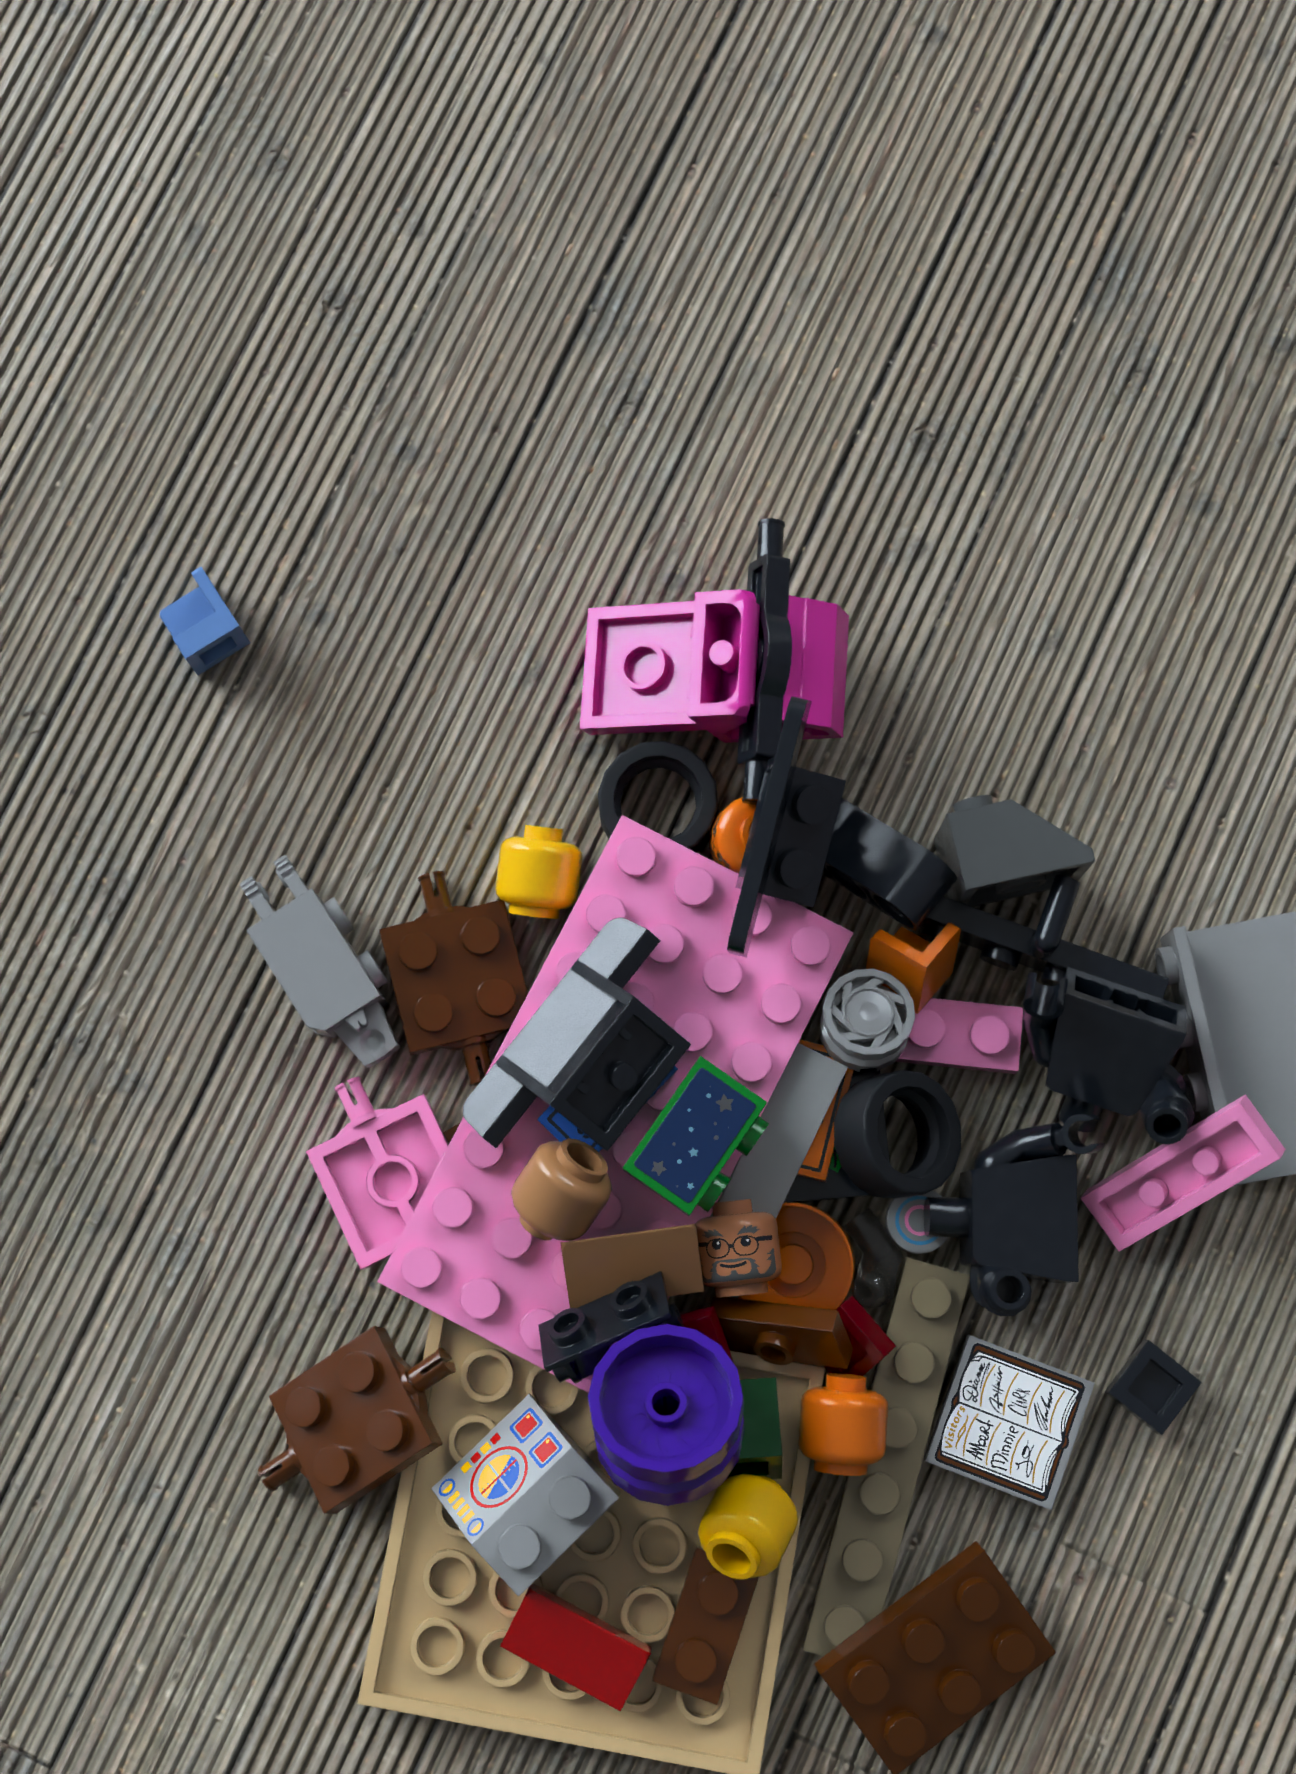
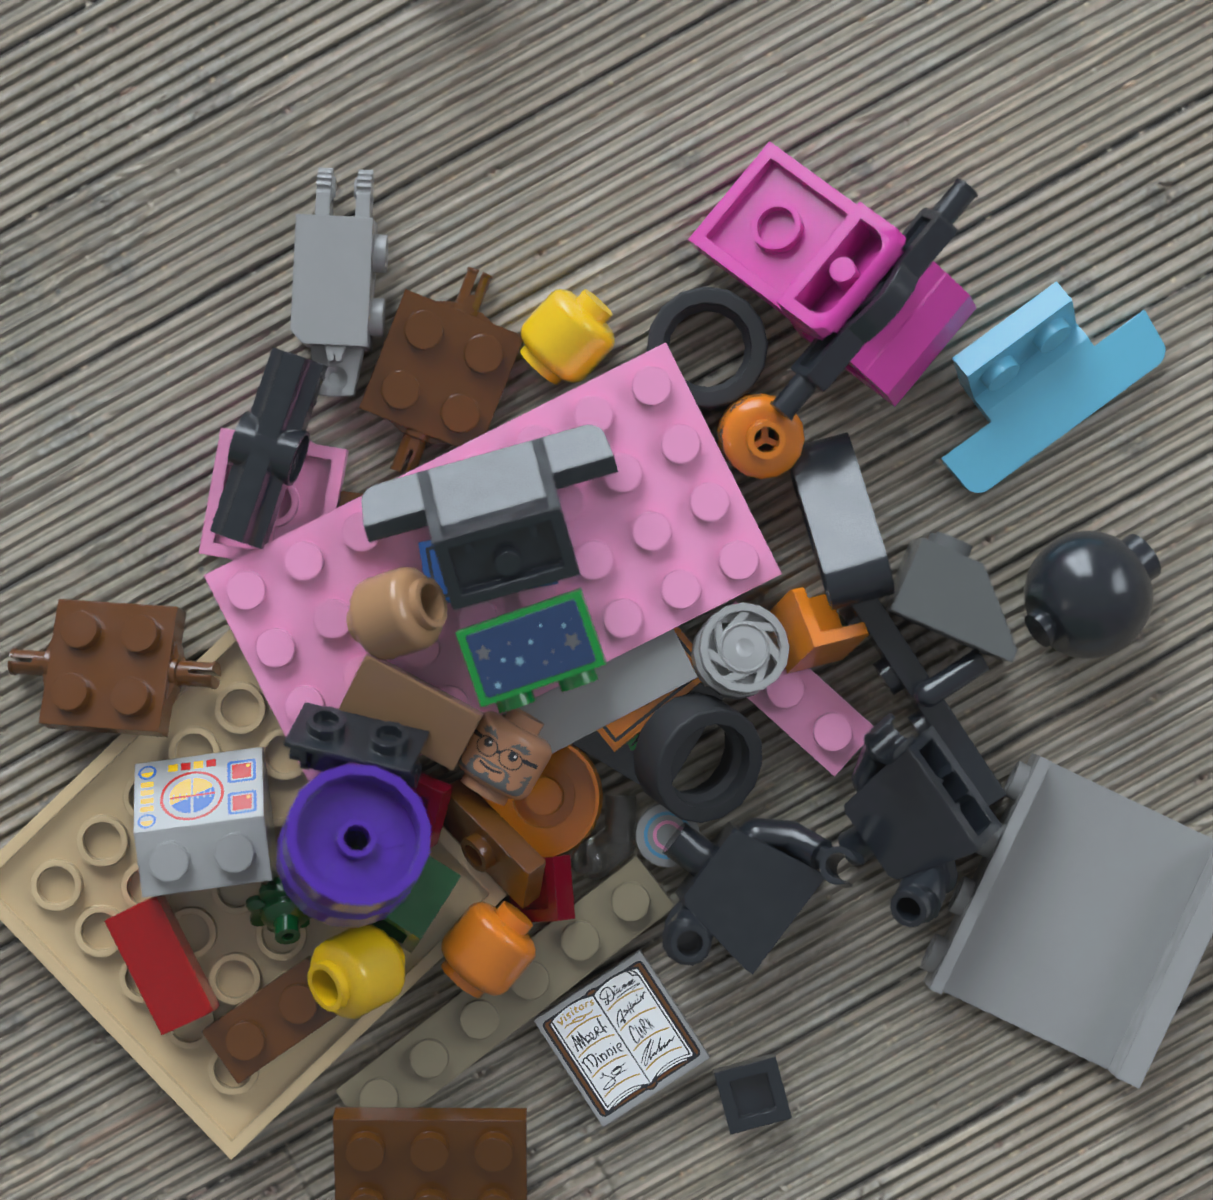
camera: 30 degrees right, 10 degrees up
(357, 1135) = (268, 448): none -> black piece
(643, 1524) = (277, 912): none -> dark green plant
(787, 831) = (783, 458): black plate -> none
(940, 639) = (1041, 379): none -> medium azure plate
(1109, 772) = (1090, 593): none -> black brick
(1183, 1174) = (886, 953): bright pink plate -> none

